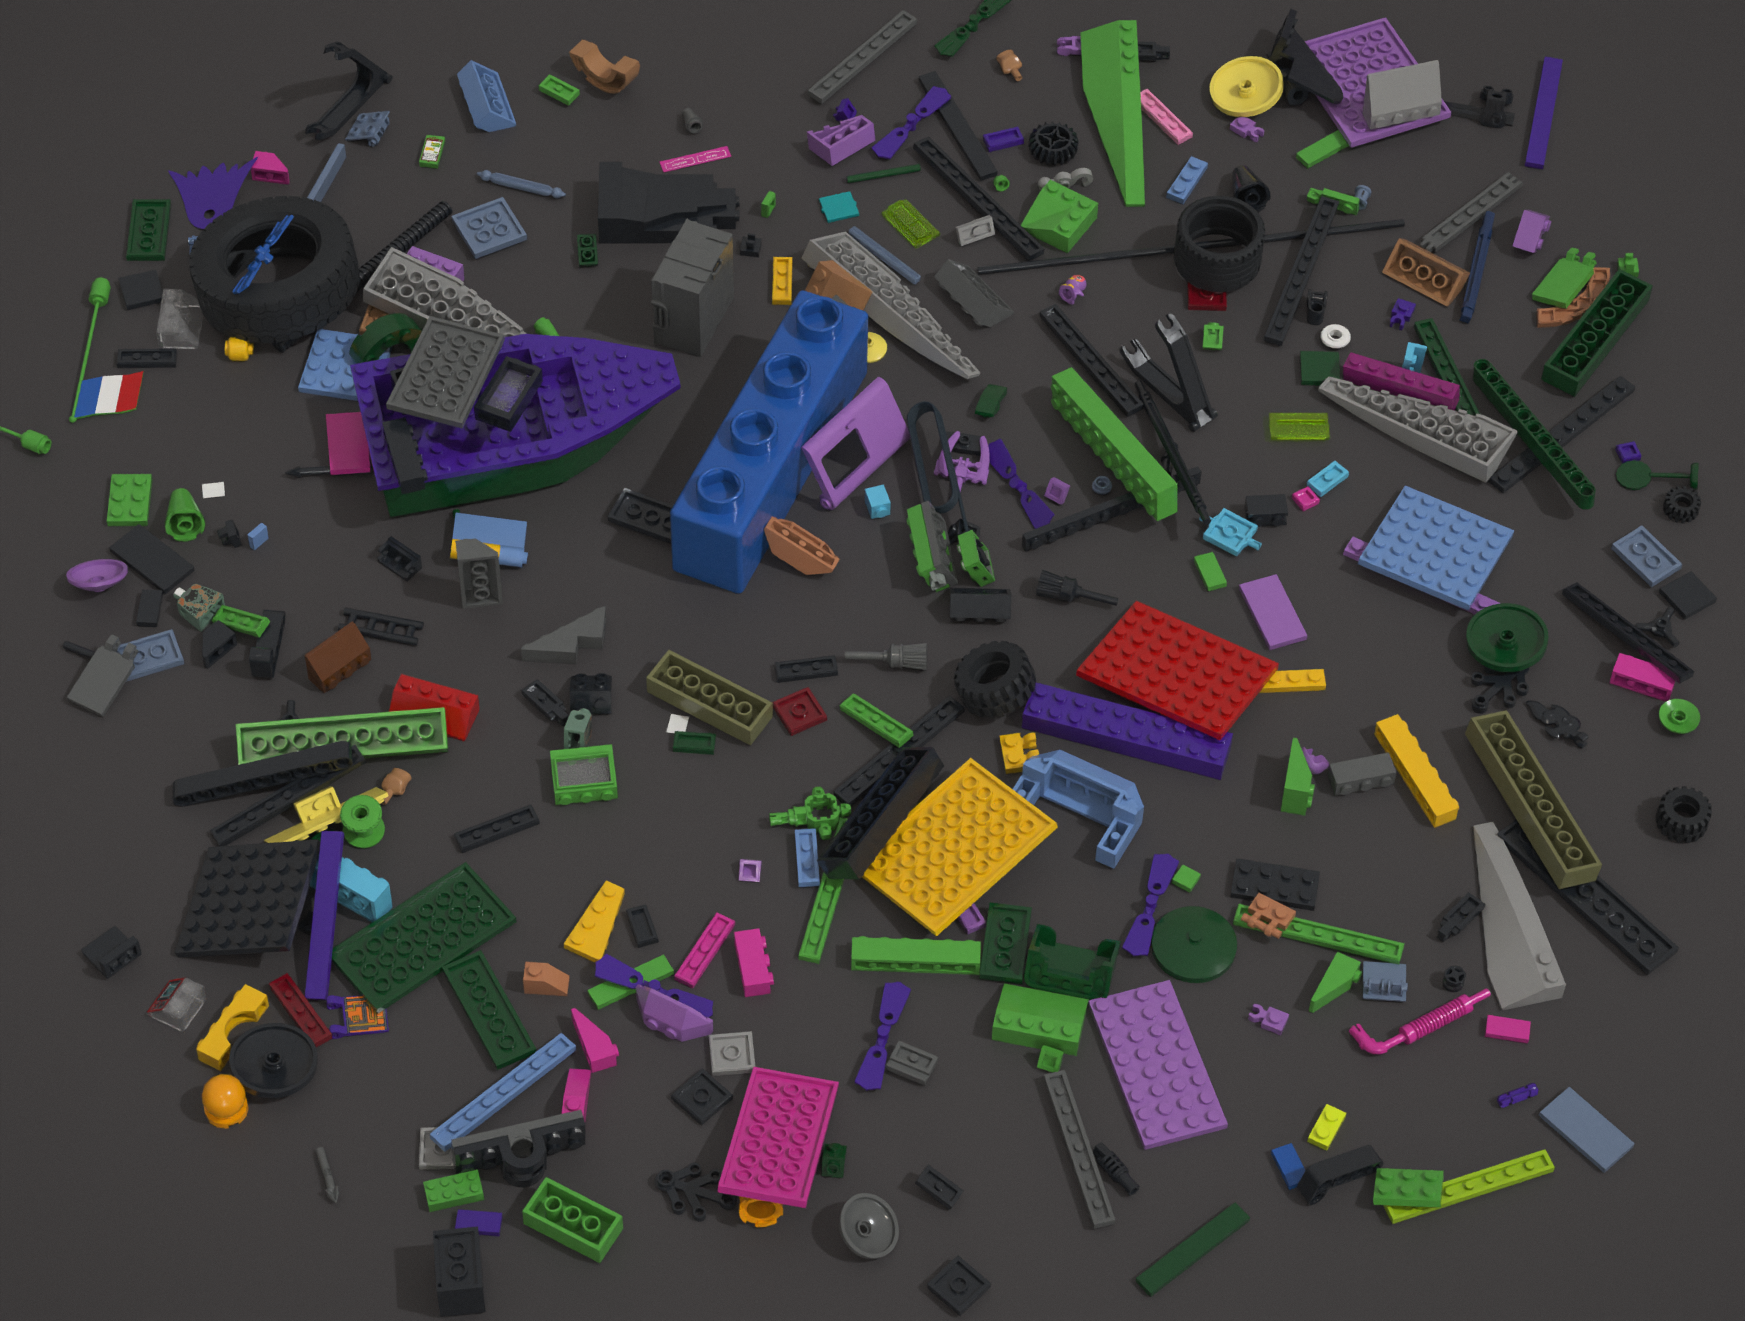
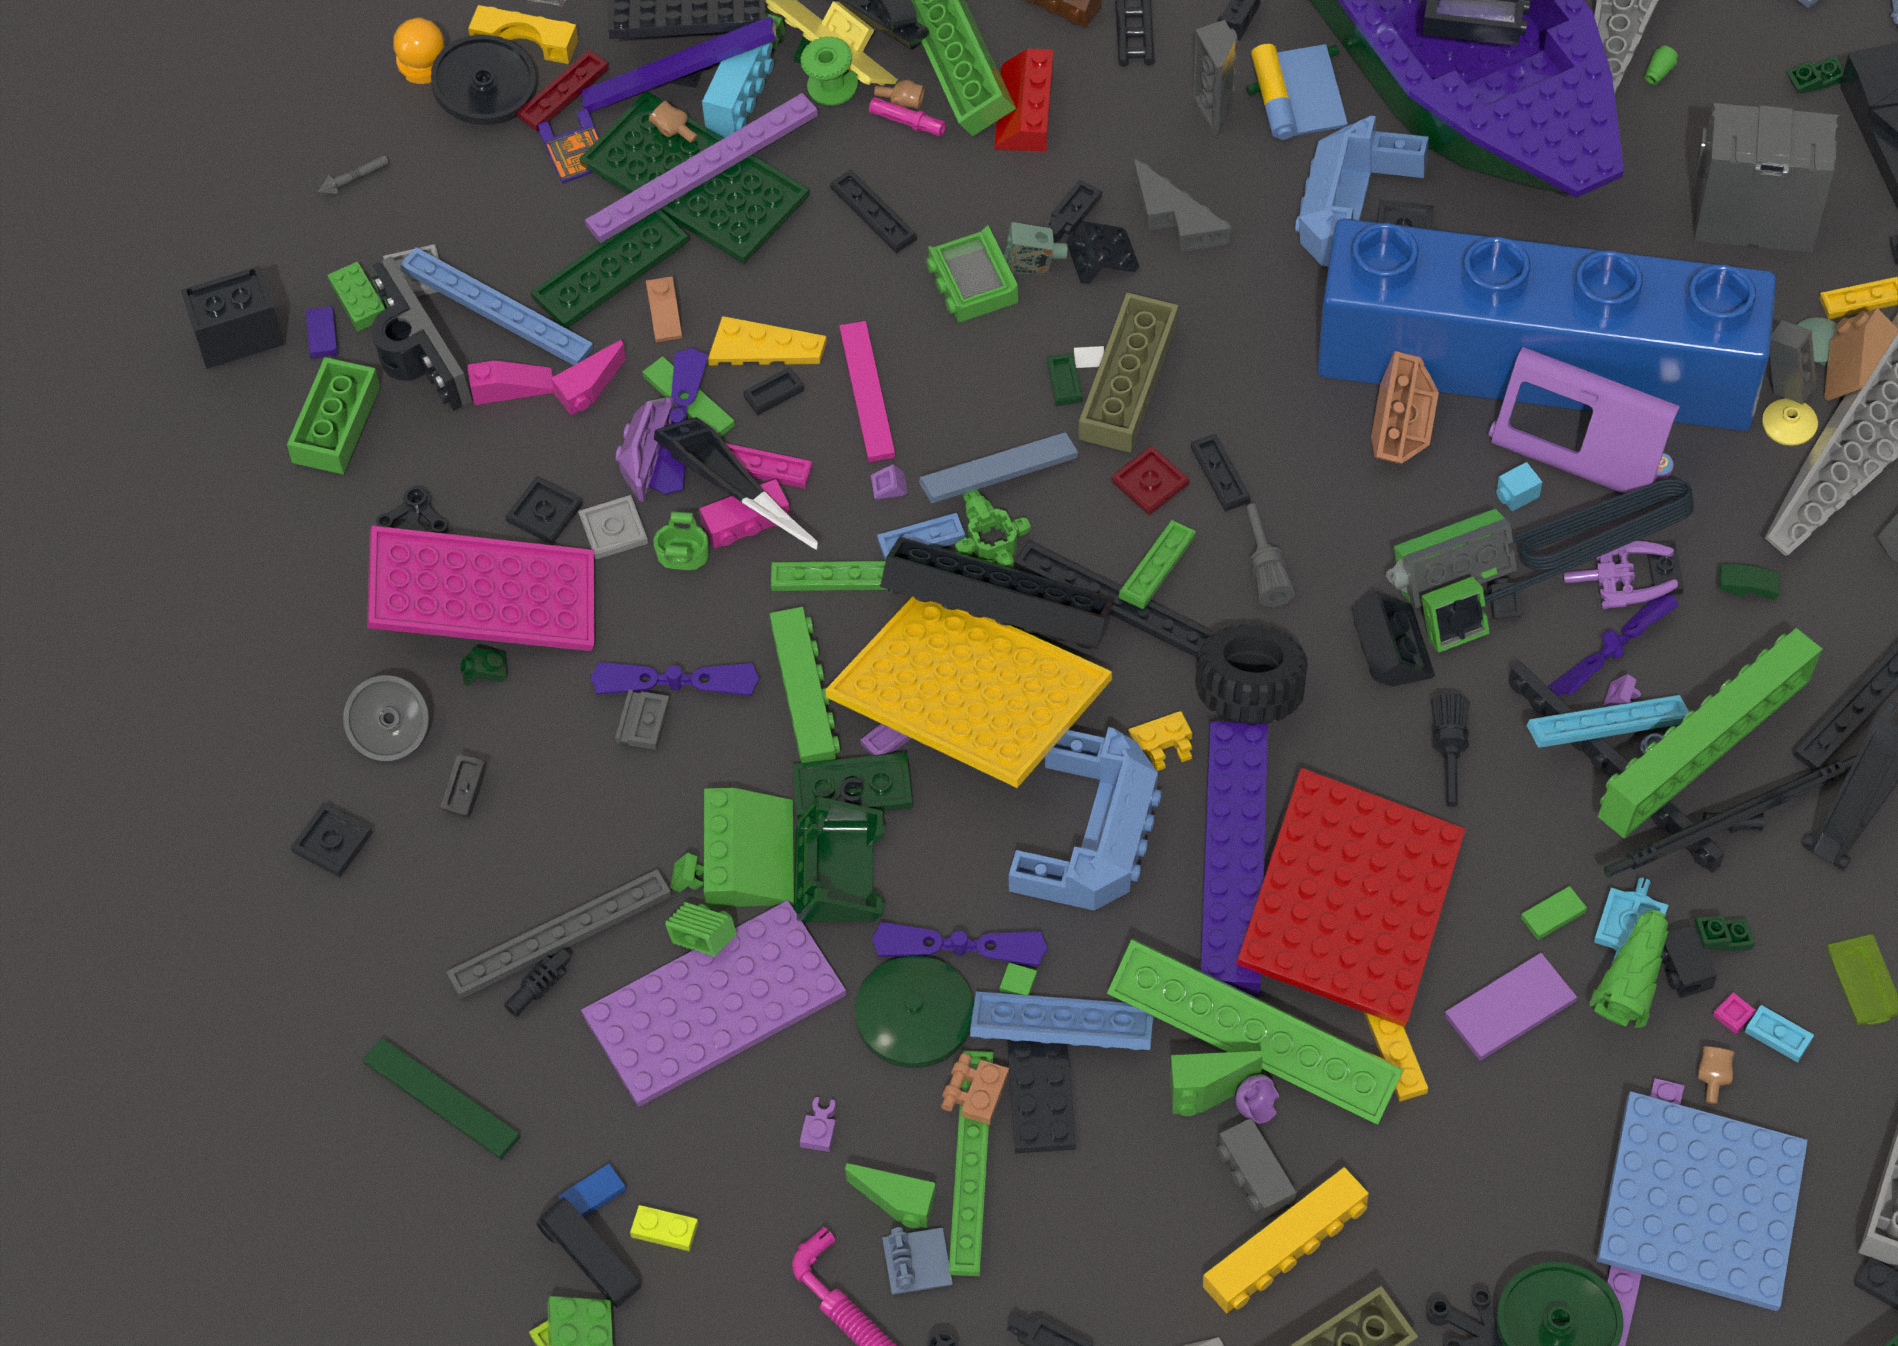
camera: 80 degrees right, 5 degrees up
(371, 936) = (671, 121): none -> medium nougat piece
(412, 791) = (917, 120): none -> dark pink pin
(421, 927) = (701, 167): none -> medium lavender plate
(601, 540) = (1342, 177): none -> medium blue wedge
(663, 866) = (867, 391): none -> dark pink tile
(700, 971) = (706, 454): none -> black plate
(766, 794) = (998, 467): none -> sand blue tile
(768, 1006) = (681, 546): none -> bright green piece
(1021, 945) = (851, 783): none -> black piece
(1083, 498) = (1607, 721): none -> medium azure tile
(1104, 1053) = (701, 928): none -> bright green brick
(1228, 855) = (1060, 1021): none -> medium blue plate
(1252, 483) = (1724, 934): none -> dark green slope
(1264, 747) = (1245, 1023): none -> bright green plate
(1280, 539) = (1631, 980): none -> bright green cone
(1347, 517) = (1715, 1071): none -> medium nougat piece

